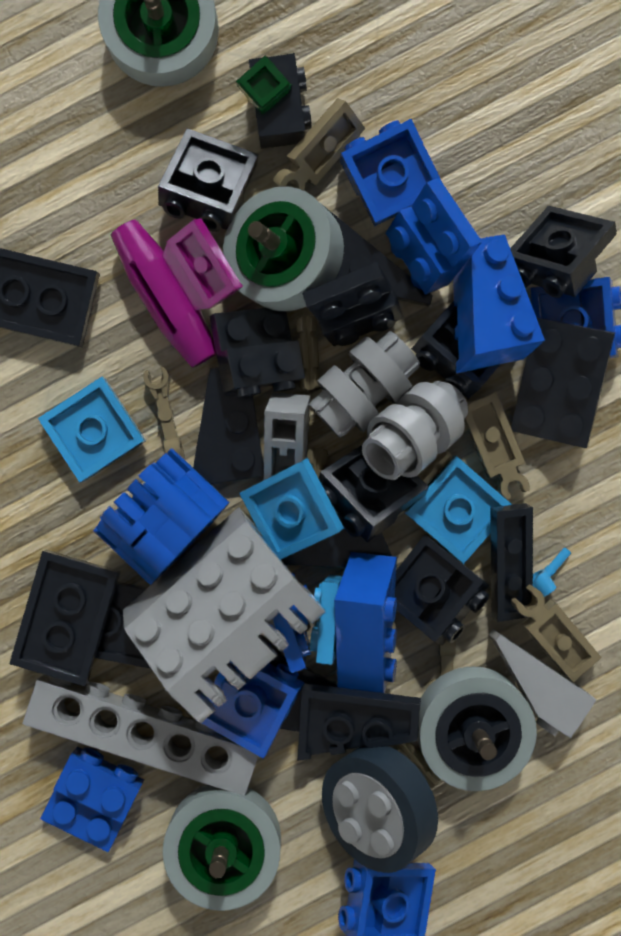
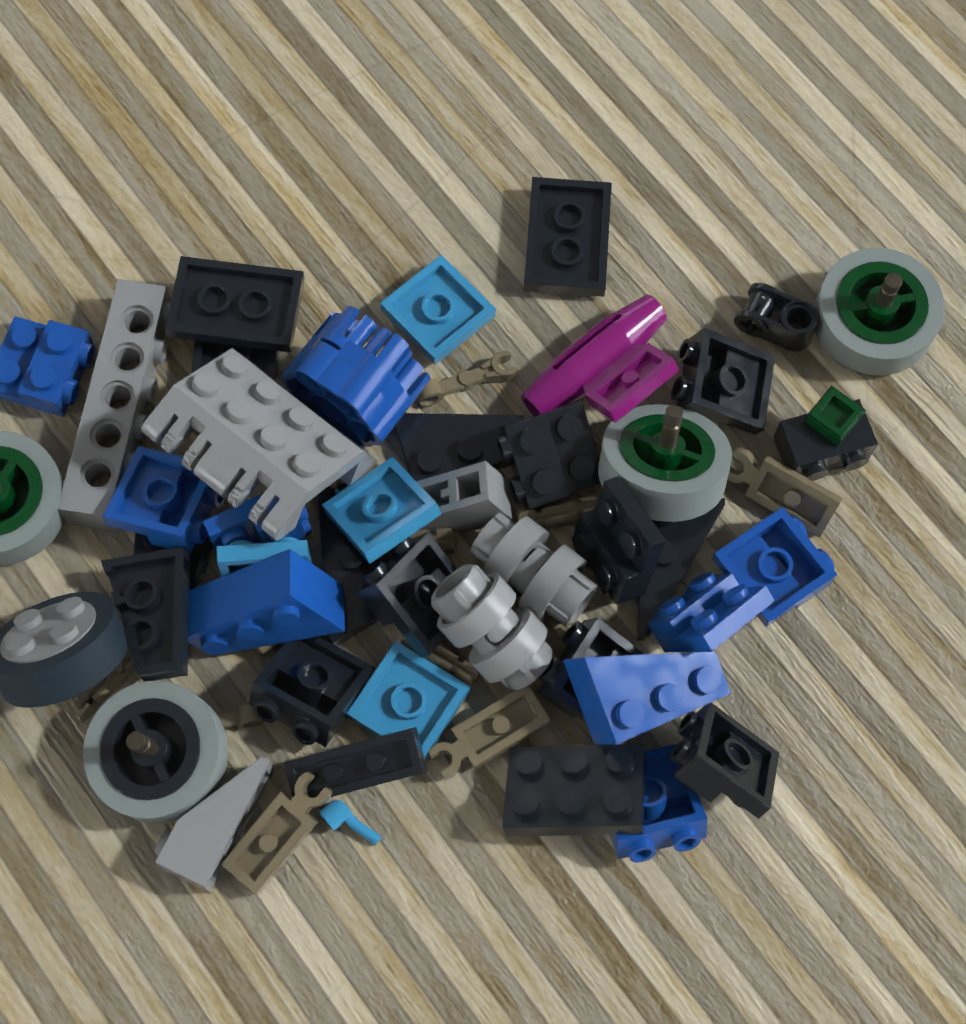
camera: 80 degrees right, 20 degrees down
(146, 120) = (774, 317): none -> black piece

